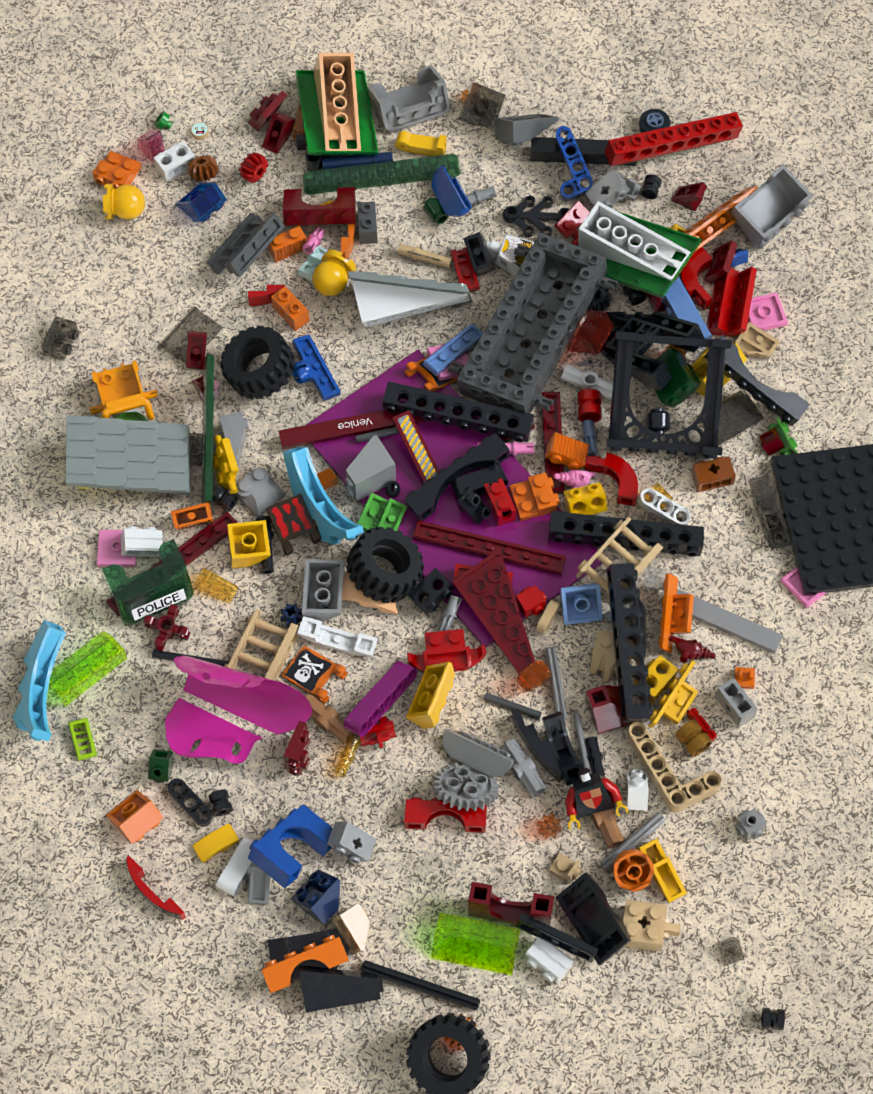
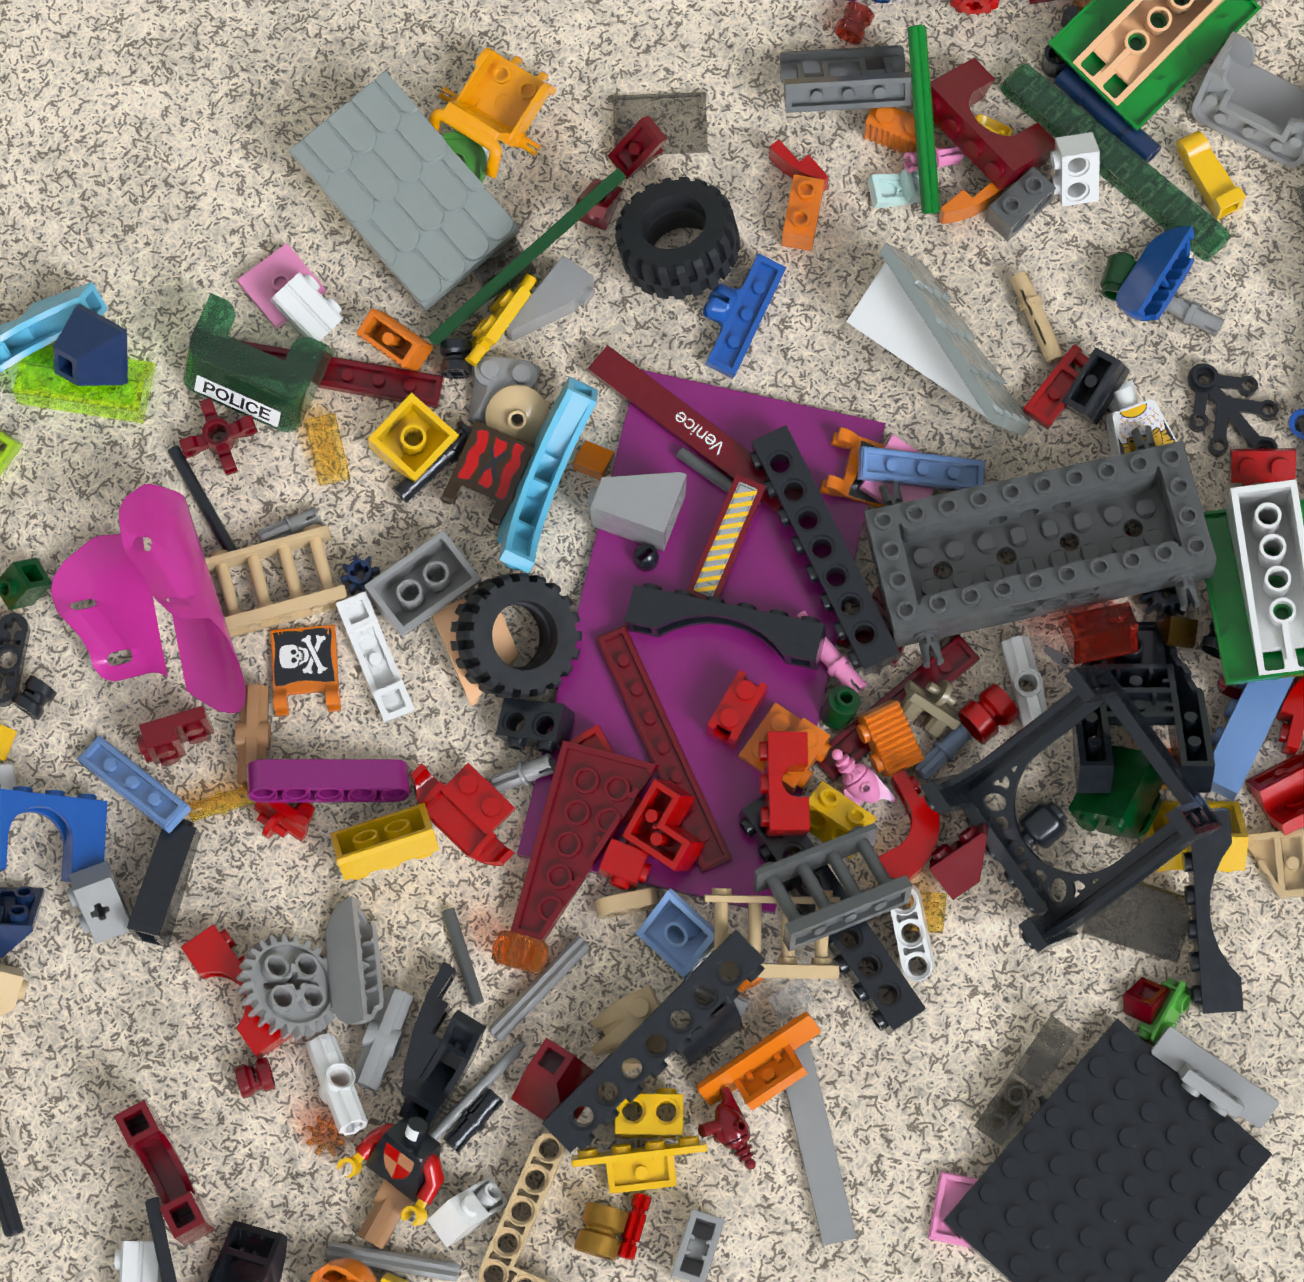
camera: 50 degrees right, 10 degrees up
(79, 642) = (91, 350): none -> dark blue slope
(220, 224) = (855, 20): none -> clear red wheel
(239, 628) = (289, 525): none -> light grey axle
(268, 490) = (517, 400): none -> tan dish
(291, 221) = (923, 119): none -> green axle
(305, 786) = (134, 784): none -> medium blue tile
(332, 274) = (895, 222): yellow tile -> none
(366, 808) = (164, 885): none -> black slope
(374, 187) = (1076, 169): none -> white brick
(381, 513) = (593, 574): bright green slope -> none
(473, 506) = (700, 681): black hips -> none
(475, 943) = (91, 1166): clear neon green slope -> none
(477, 480) = (736, 653): black beam -> none
(494, 837) = (247, 1080): none -> dark red wheel
(529, 574) = (658, 829): none -> red brick
(529, 801) = (341, 1099): none -> white piece
(534, 461) = (840, 707): none -> dark green brick
(565, 417) = (940, 714): none -> dark tan hips
(565, 513) = (783, 813): none -> red arch
(565, 868) = (286, 1202): tan bracket -> none
(617, 305) = (1178, 631): none -> dark brown slope
(635, 524) = (832, 916): none -> dark grey fence
(649, 462) = (960, 864): none -> dark red slope
(713, 474) = (1033, 975): dark orange brick -> none
(745, 677) = (751, 1232): orange tile -> none
(829, 438) = (1214, 1079): none -> light grey bracket

